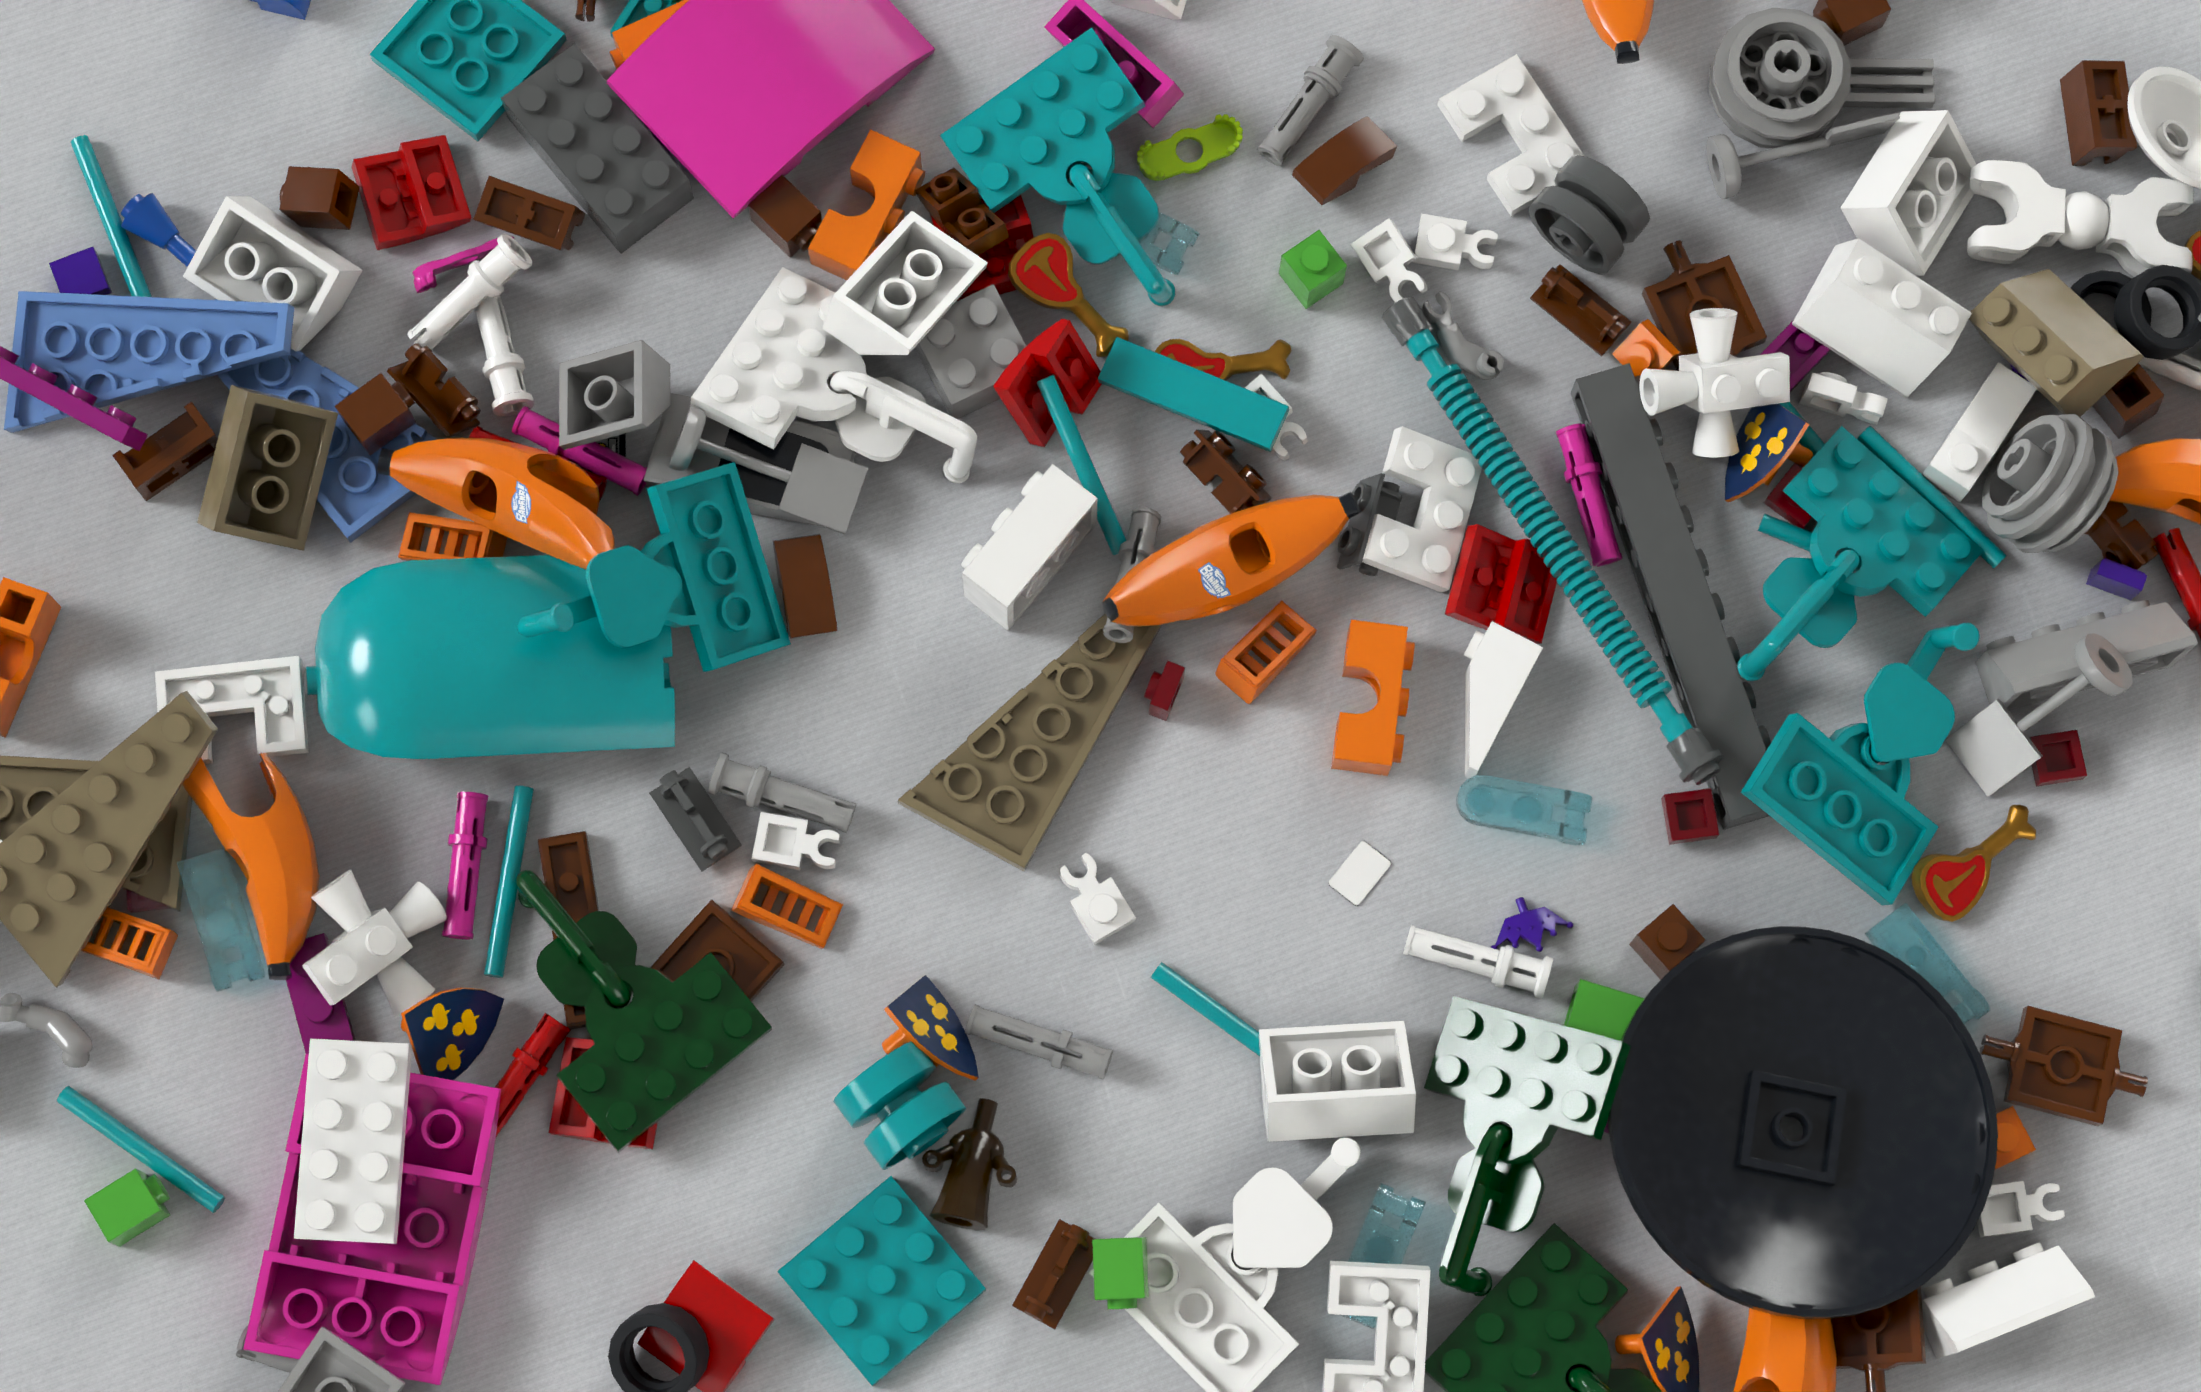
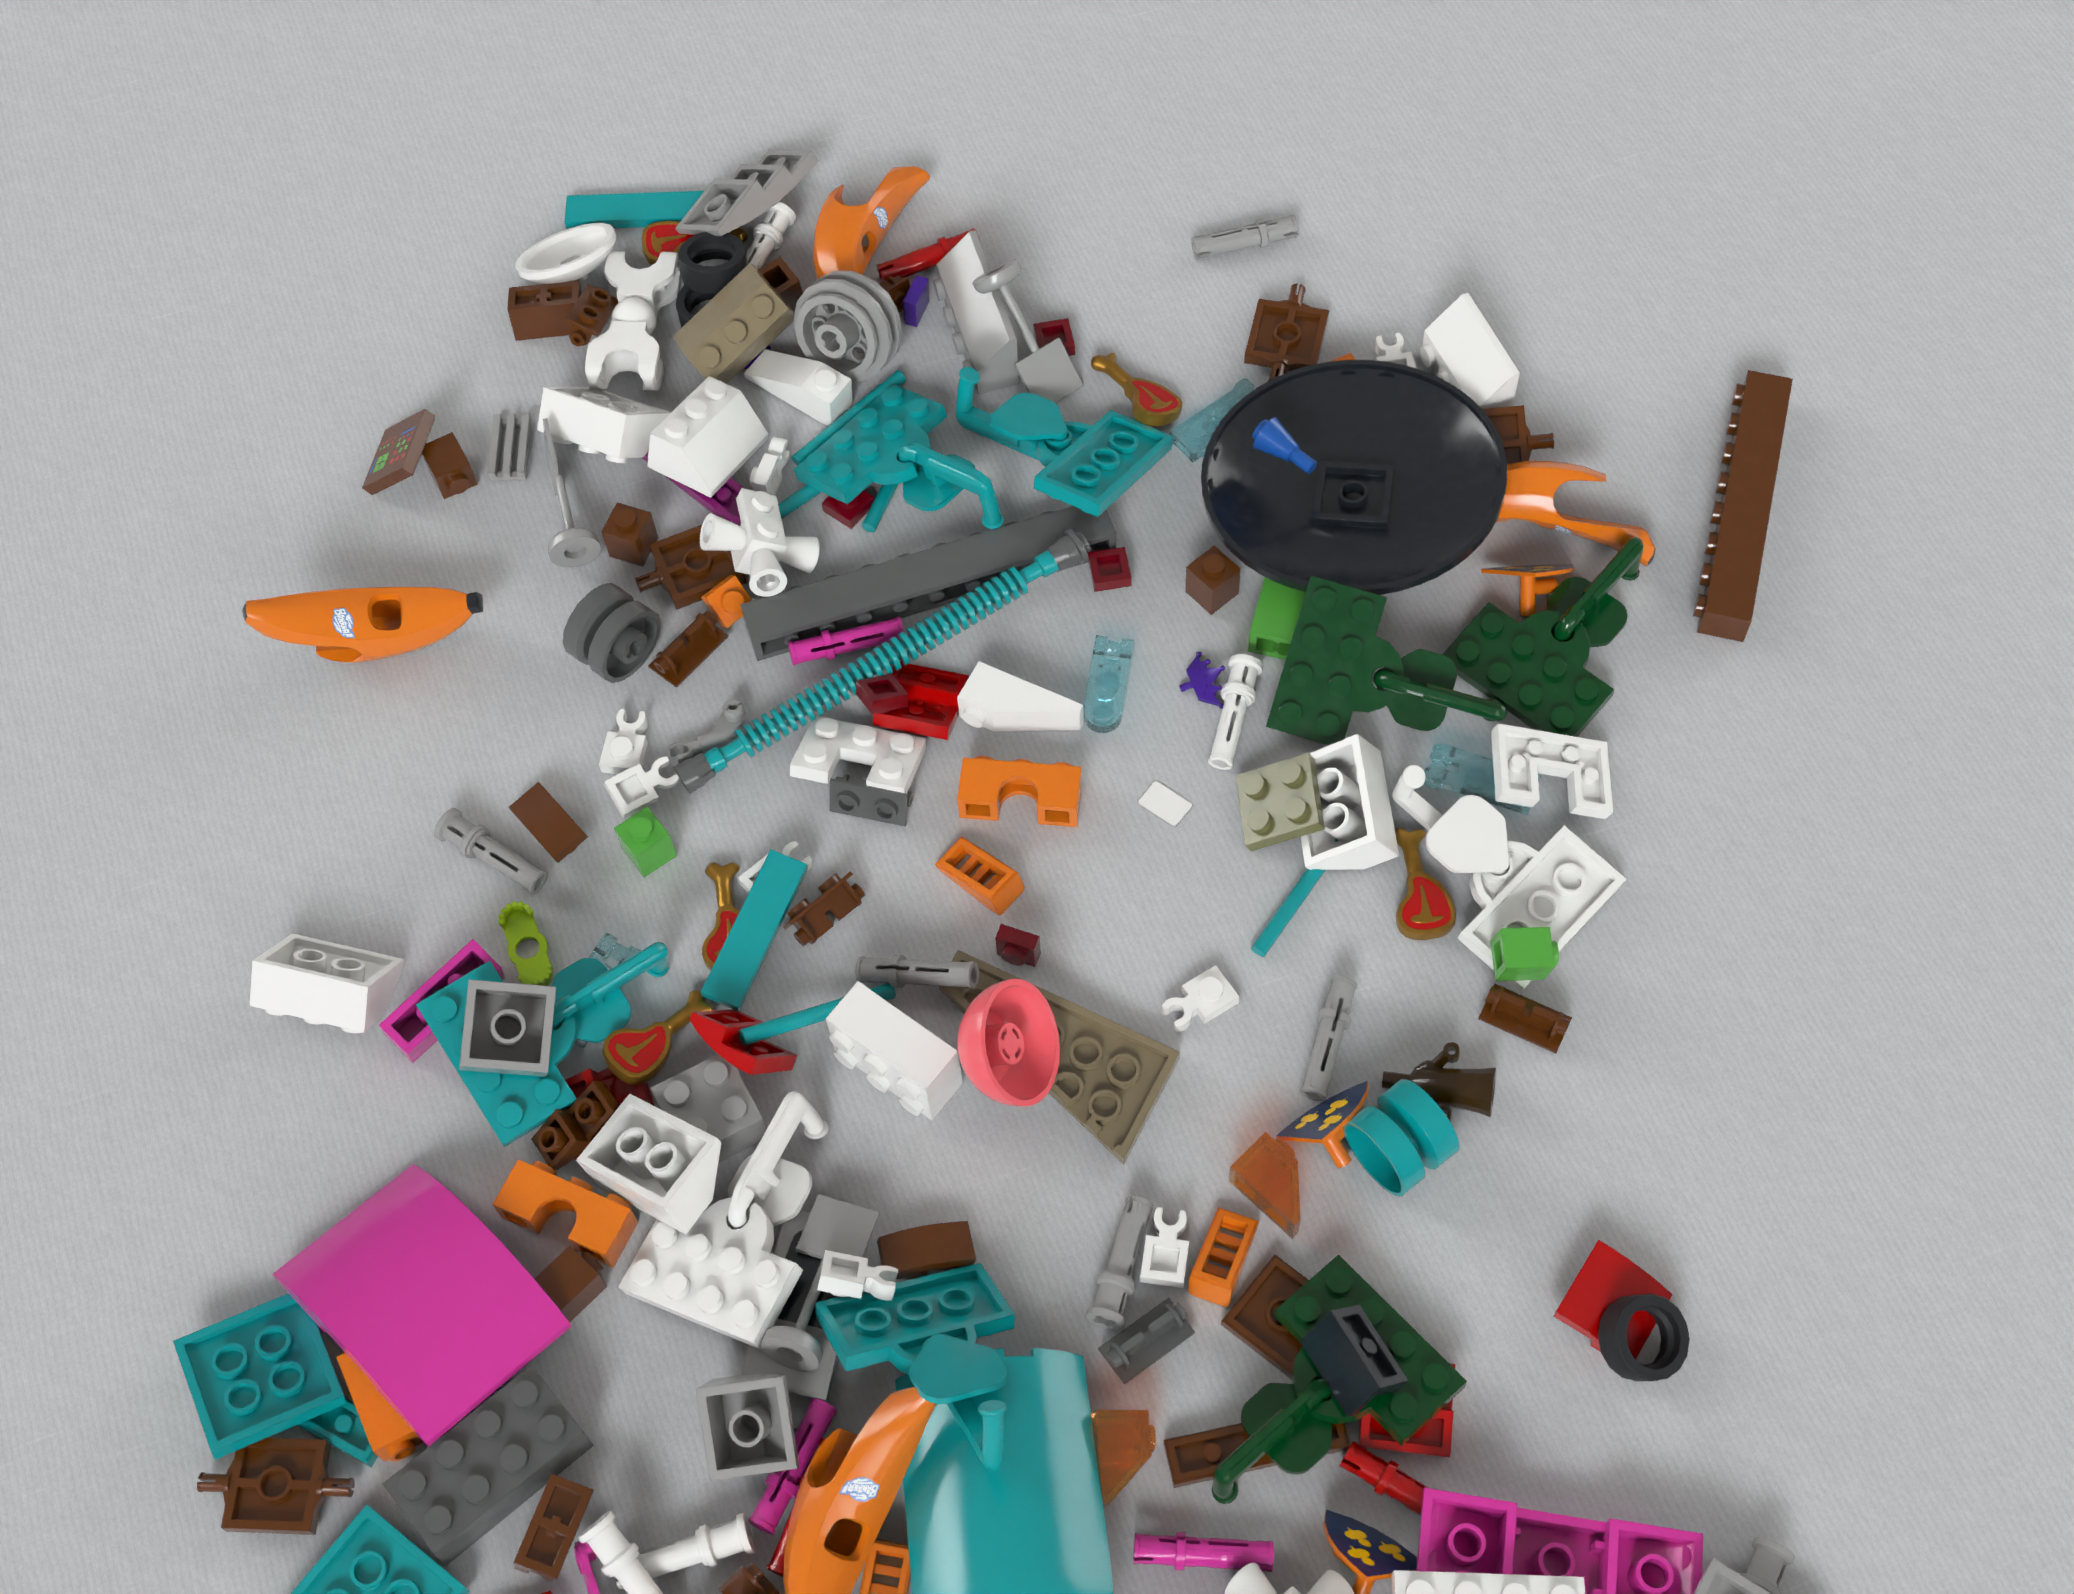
camera: 85 degrees left, 15 degrees down
(507, 883) = (1214, 1512): teal bar -> none
(569, 780) = (1122, 1447): none -> clear orange slope
(641, 1026) = (1352, 1358): none -> black panel
(763, 495) = (850, 1276): none -> white plate
(865, 963) = (1270, 1181): none -> clear orange slope
(881, 1280) = (1548, 1160): teal plate -> none
(1015, 668) = (1010, 1043): none -> coral piece
(1047, 122) = (507, 1028): none -> light grey brick
(1206, 1174) = (1427, 907): none -> pearl gold piece
(1228, 560) = (906, 888): orange piece -> none
(1345, 1004) = (1280, 802): none -> plate
(1498, 532) = (881, 694): none -> dark red plate
(1515, 99) = (500, 702): white plate -> none
(1744, 231) = (629, 534): none -> reddish brown brick
(1764, 443) = (813, 512): dark blue shield -> none
(1784, 40) = (497, 492): light grey wheel -> none
(1849, 1020) = (1275, 440): none -> blue cone
(2081, 164) = (590, 314): none -> reddish brown hinge

